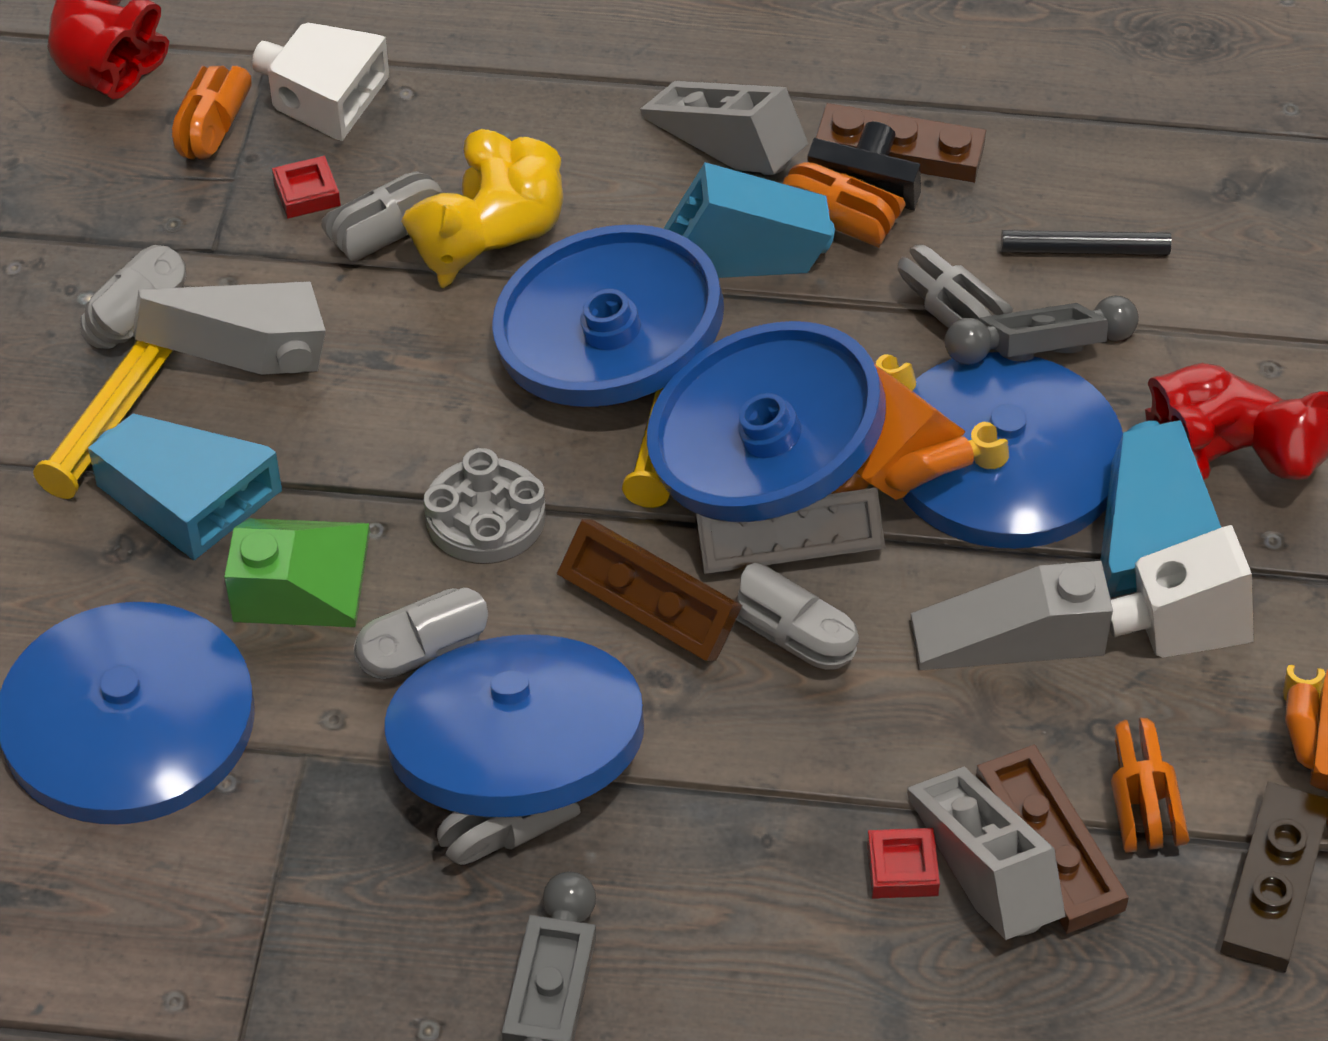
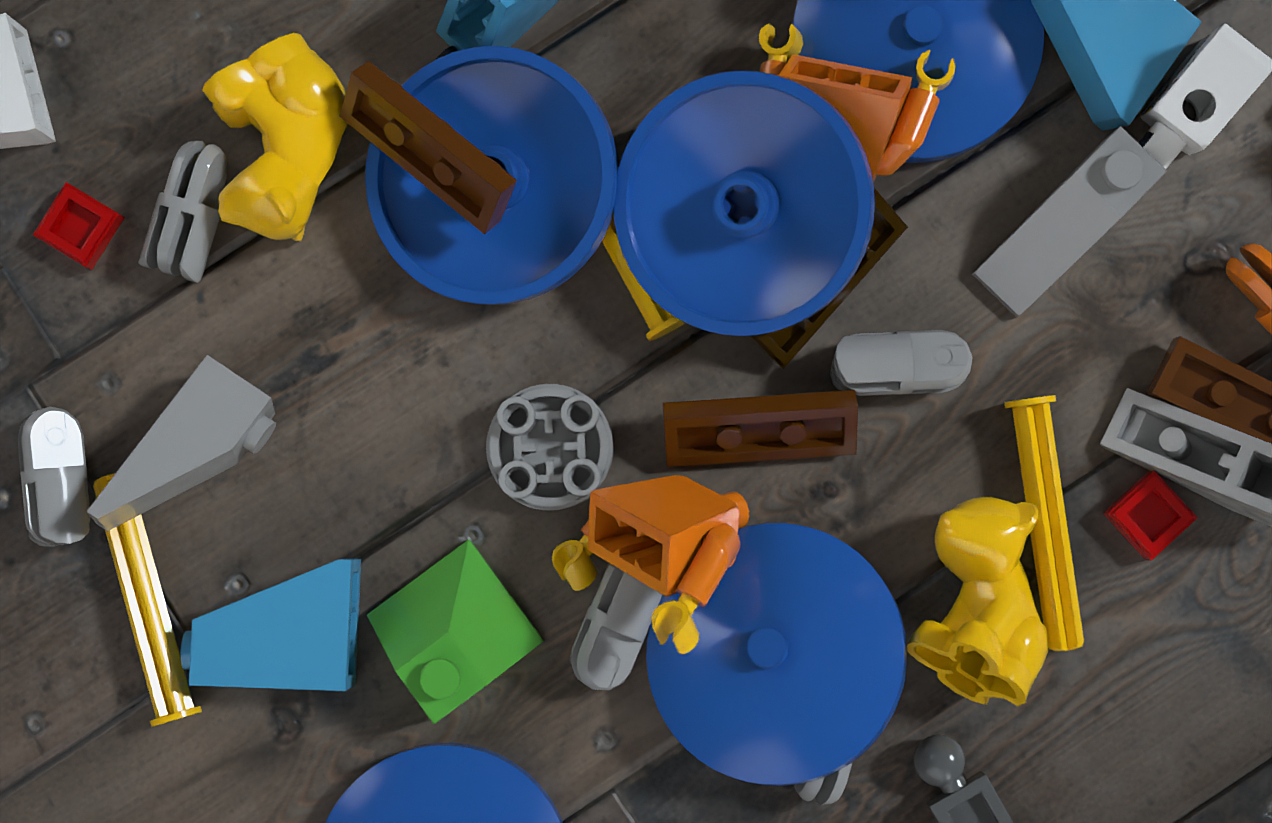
camera: 35 degrees left, 35 degrees up
(505, 576) = (665, 536): none -> orange torso
(578, 256) = (427, 147): none -> reddish brown plate
(702, 828) = (993, 632): none -> yellow animal
(814, 801) = (1050, 533): none -> yellow axle

